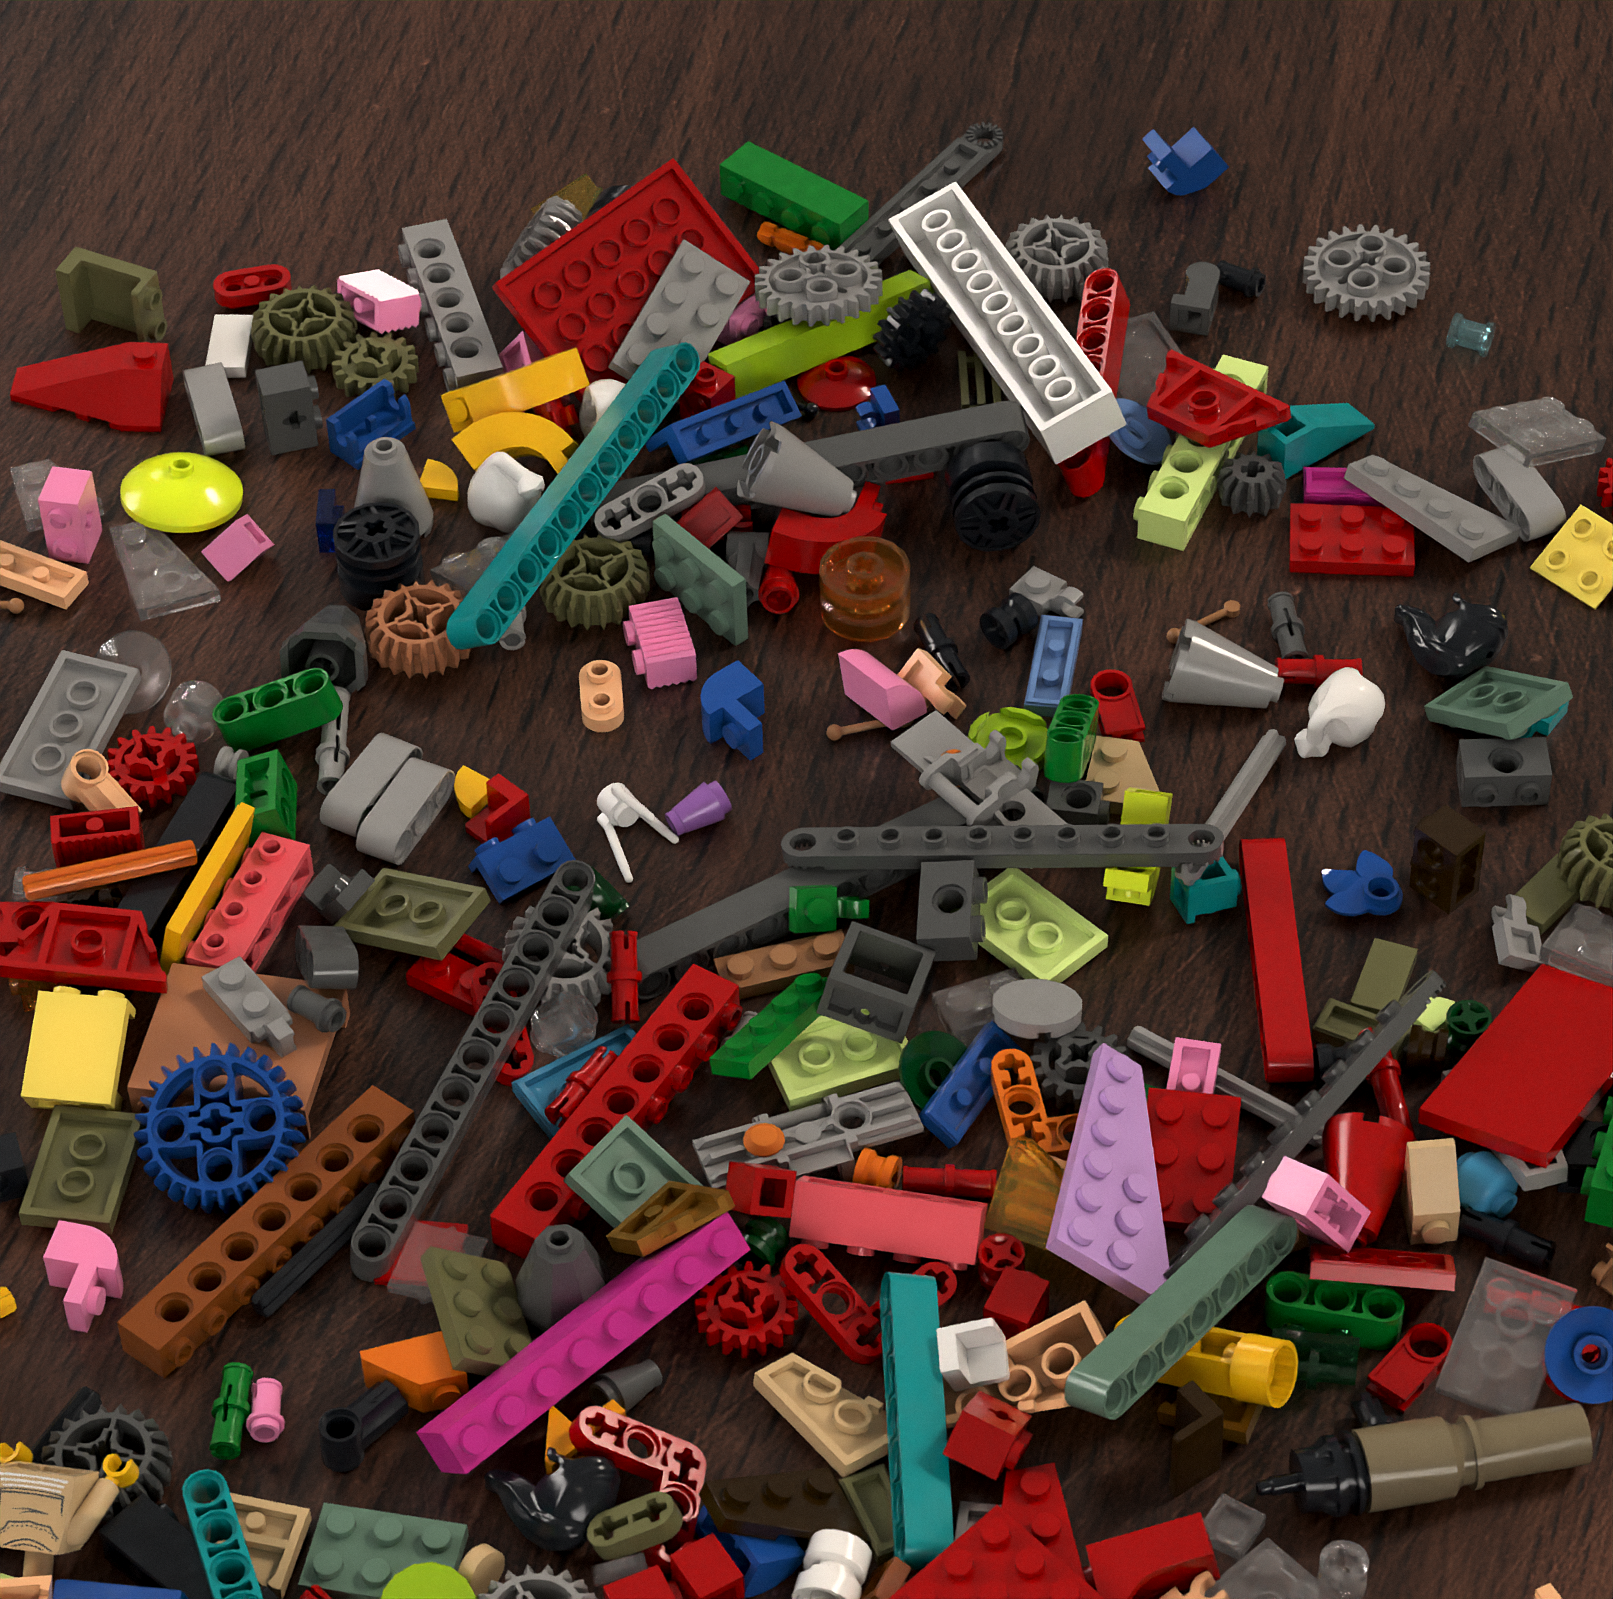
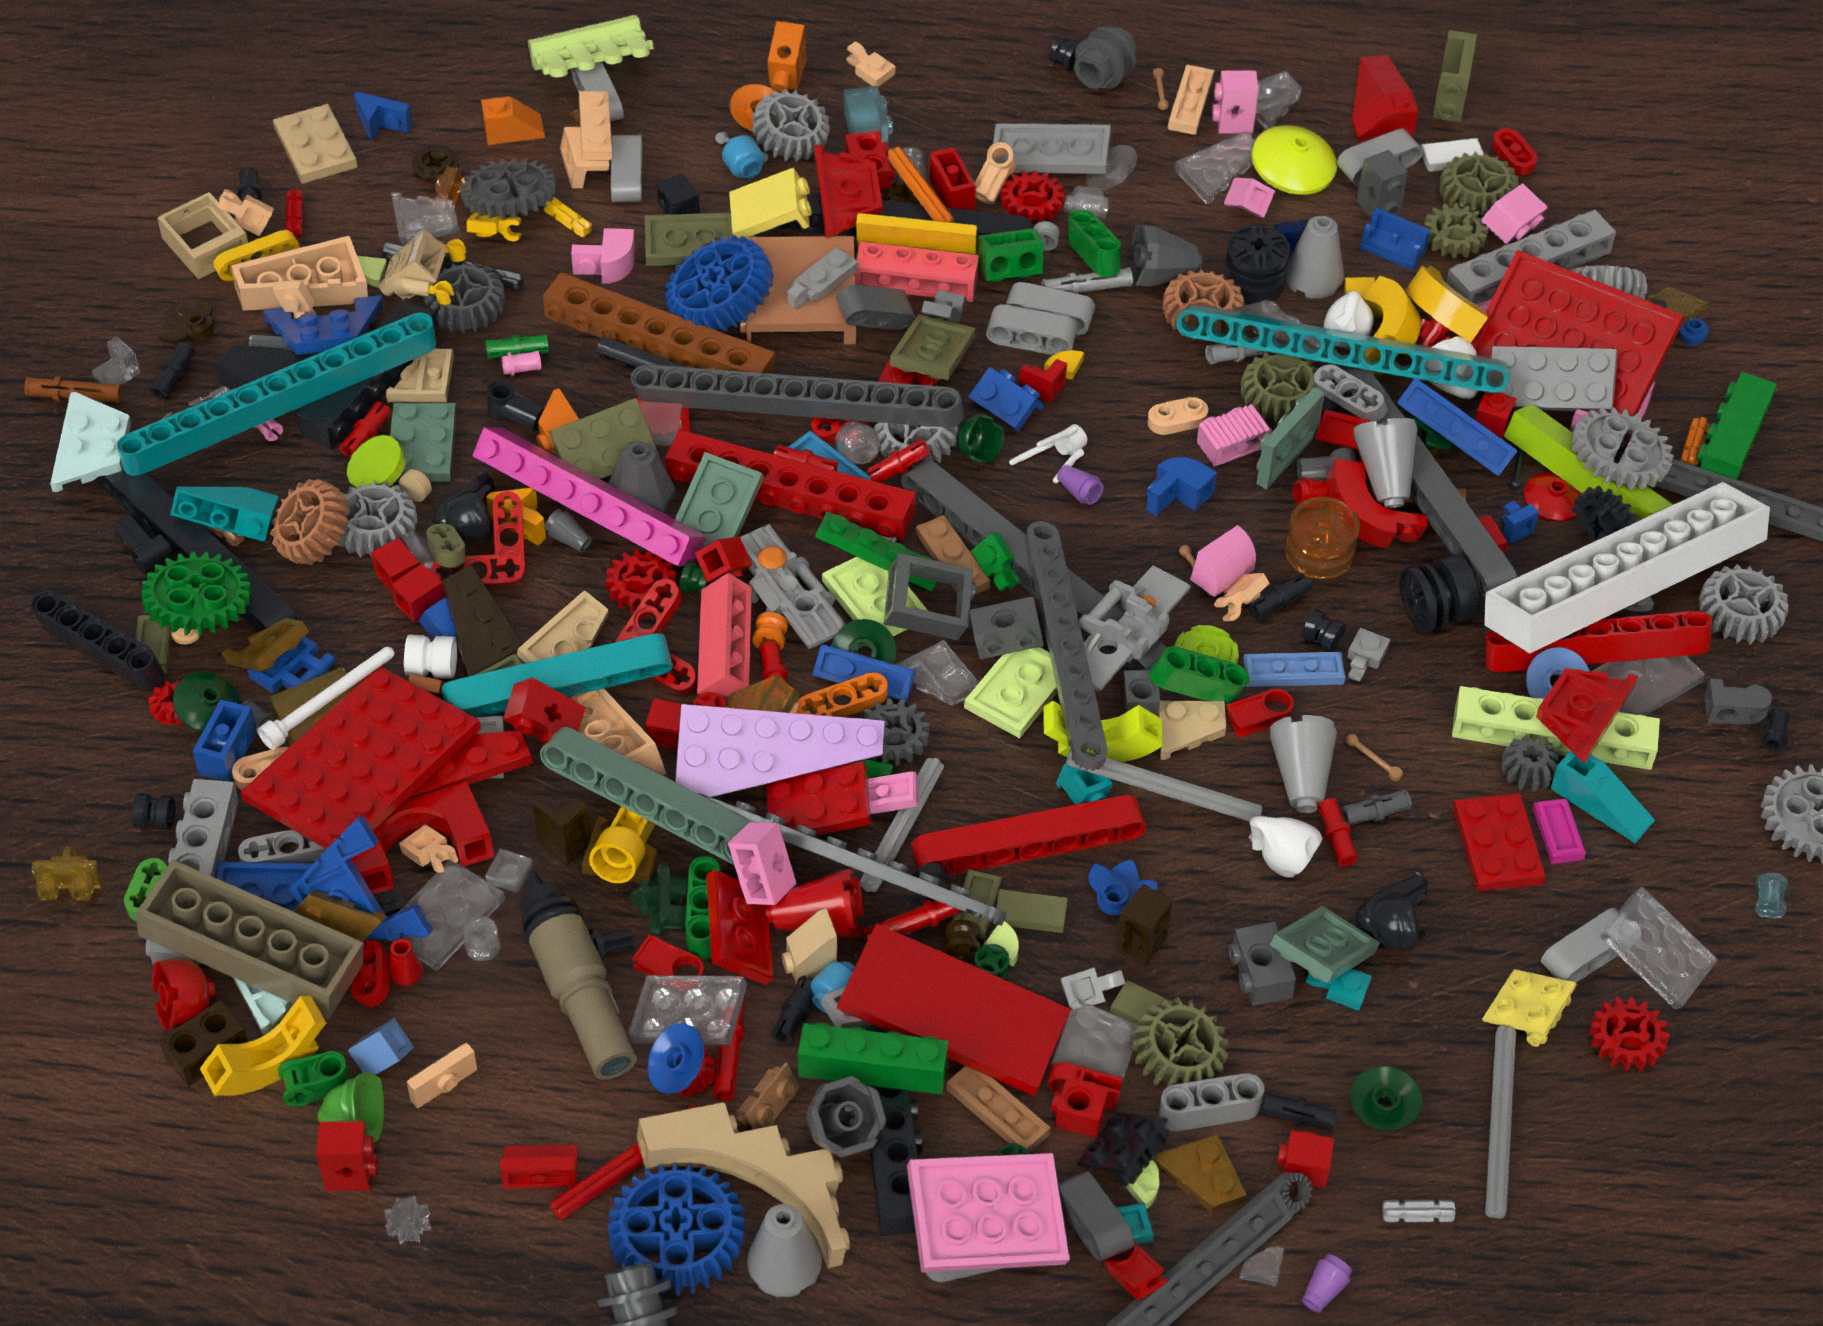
camera: 75 degrees right, 5 degrees up
(324, 1012) = (820, 311): dark grey pin -> none
(668, 1216) = (685, 512): pearl gold wing -> none
(973, 1354) = (608, 694): white panel -> none
(1037, 1007) = (930, 692): light grey tile -> none
(1438, 513) = (1539, 890): light grey wing -> none

